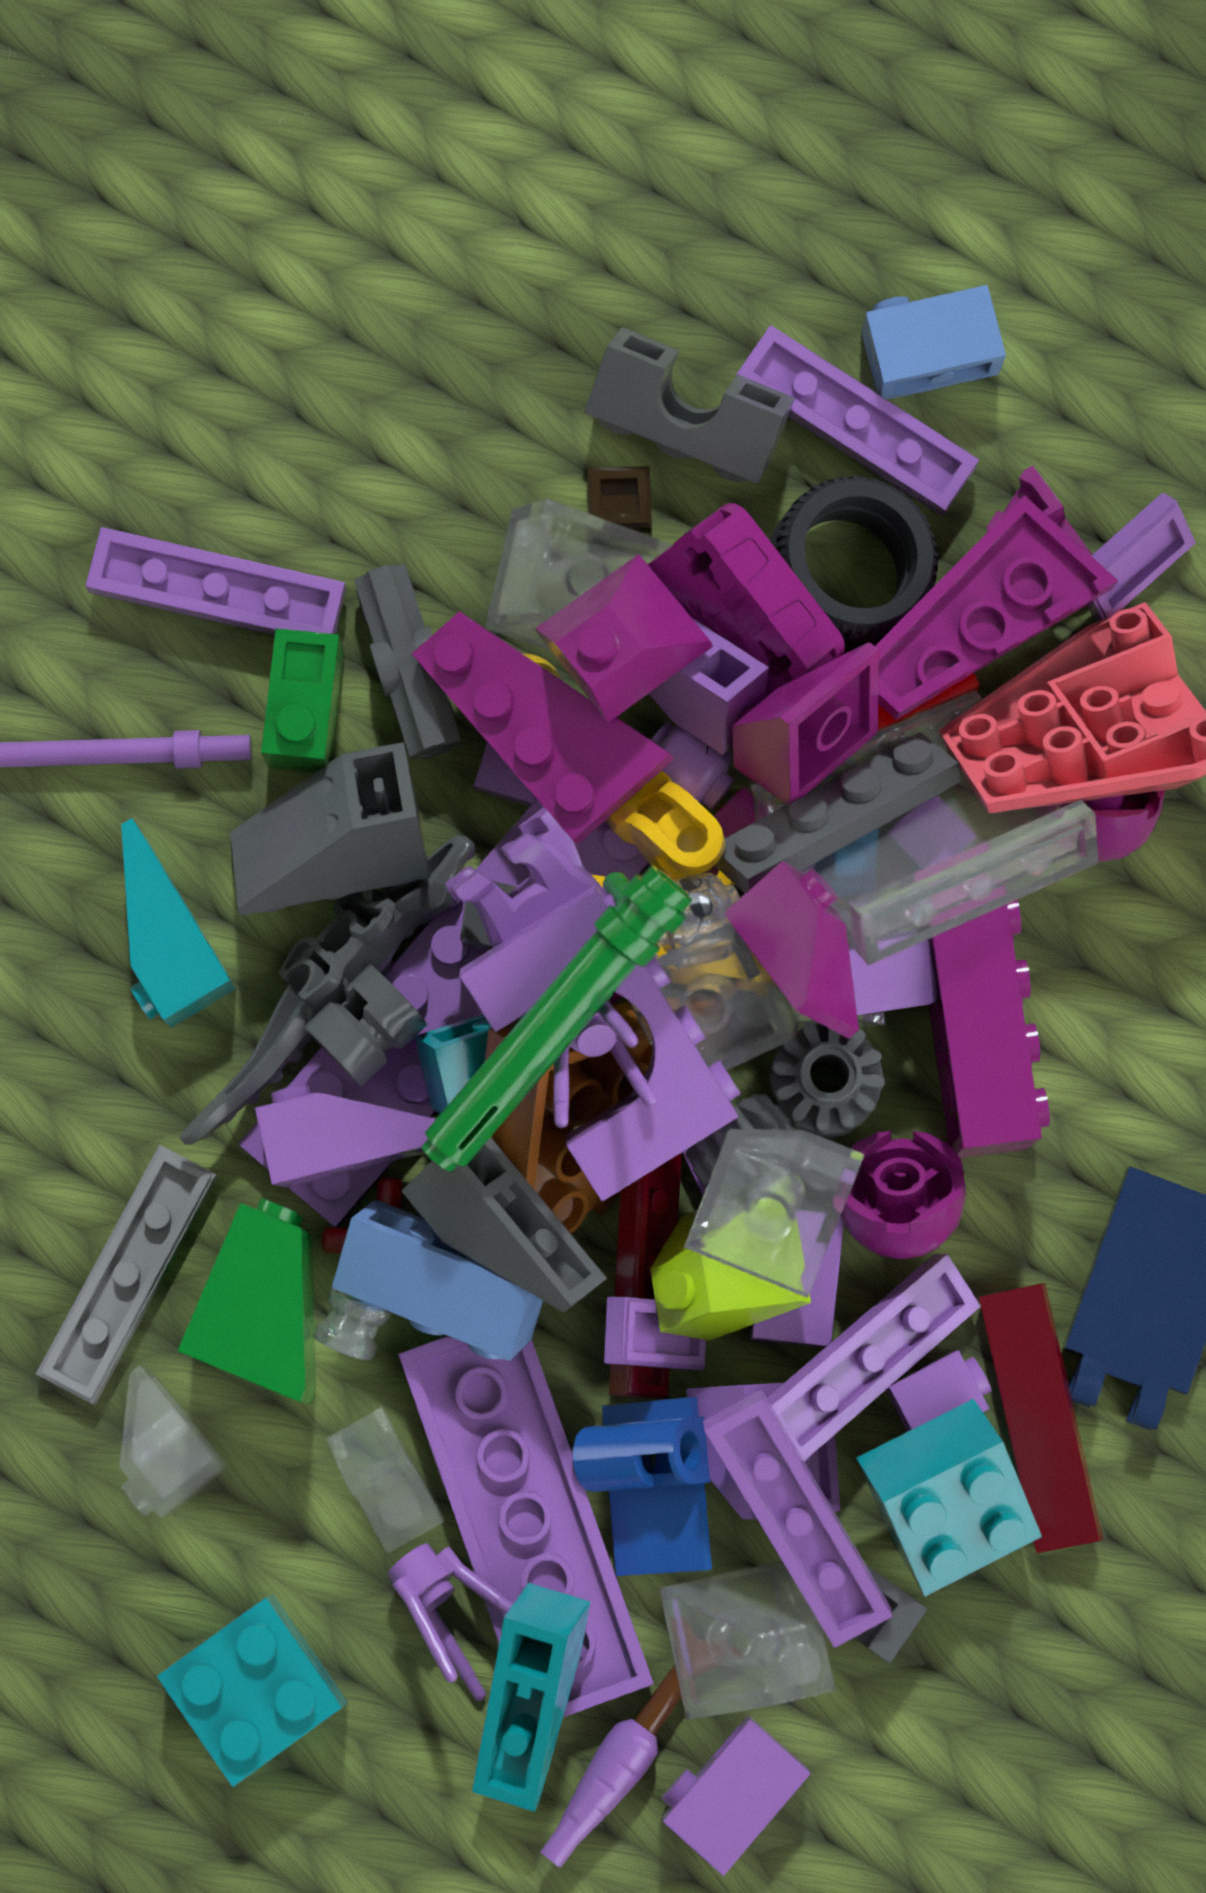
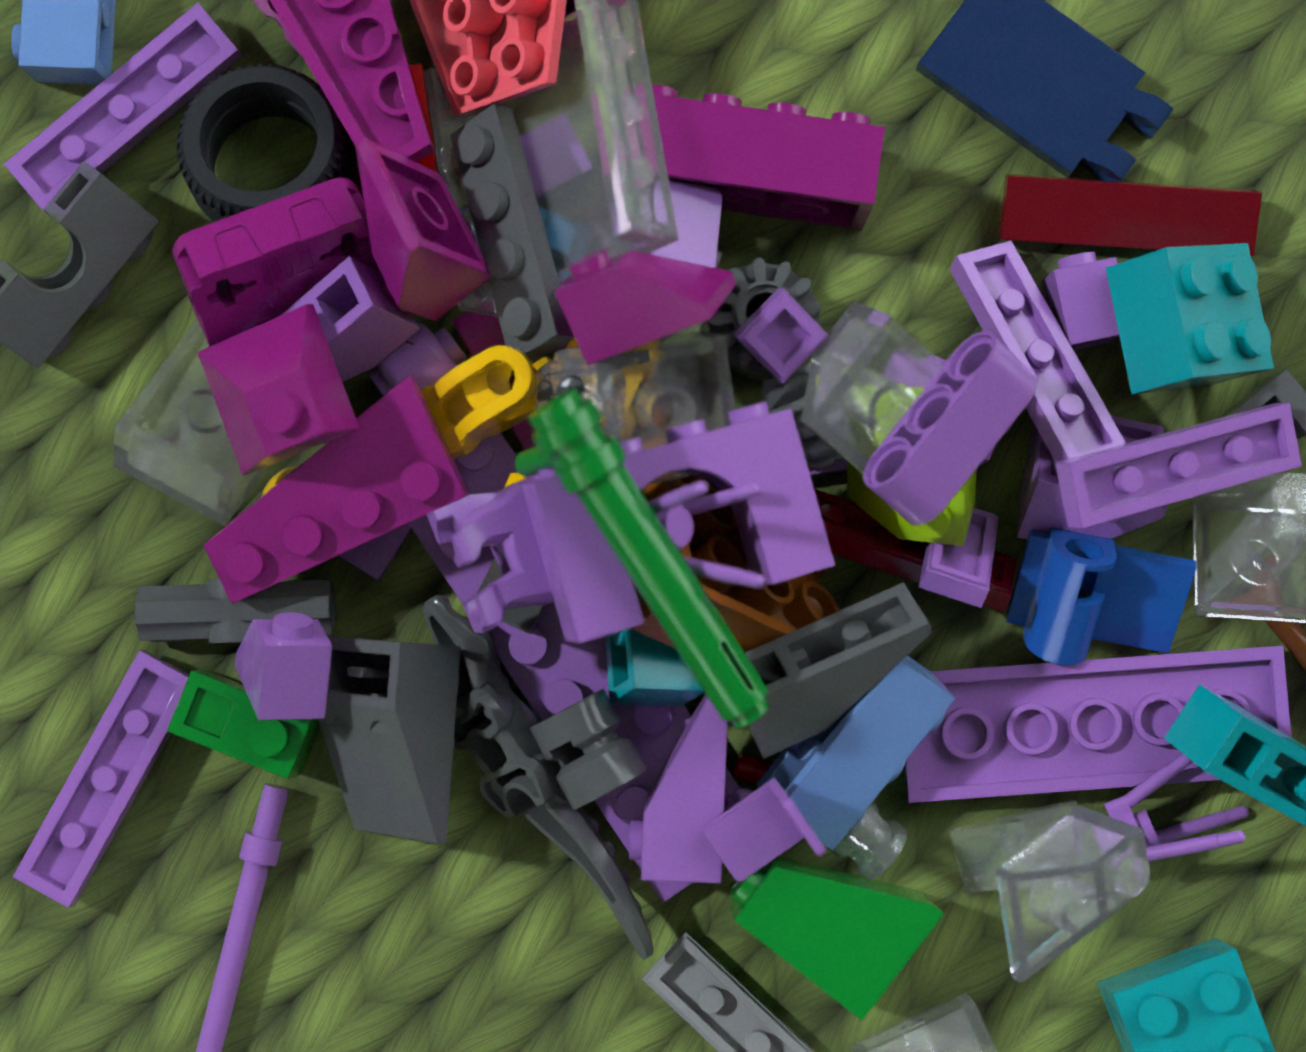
camera: 70 degrees left, 5 degrees up
(166, 945) = (446, 921): teal slope -> none
(331, 1204) = (758, 829): none -> medium lavender bracket
(356, 1522) = (1068, 886): none -> clear slope
(365, 719) = (285, 667): none -> medium lavender slope
(621, 496) = (131, 357): dark brown tile -> none
(764, 1276) = (950, 428): none -> medium lavender beam
(810, 1093) = (781, 335): none -> medium lavender tile
(905, 1195) = (894, 270): magenta cylinder -> none

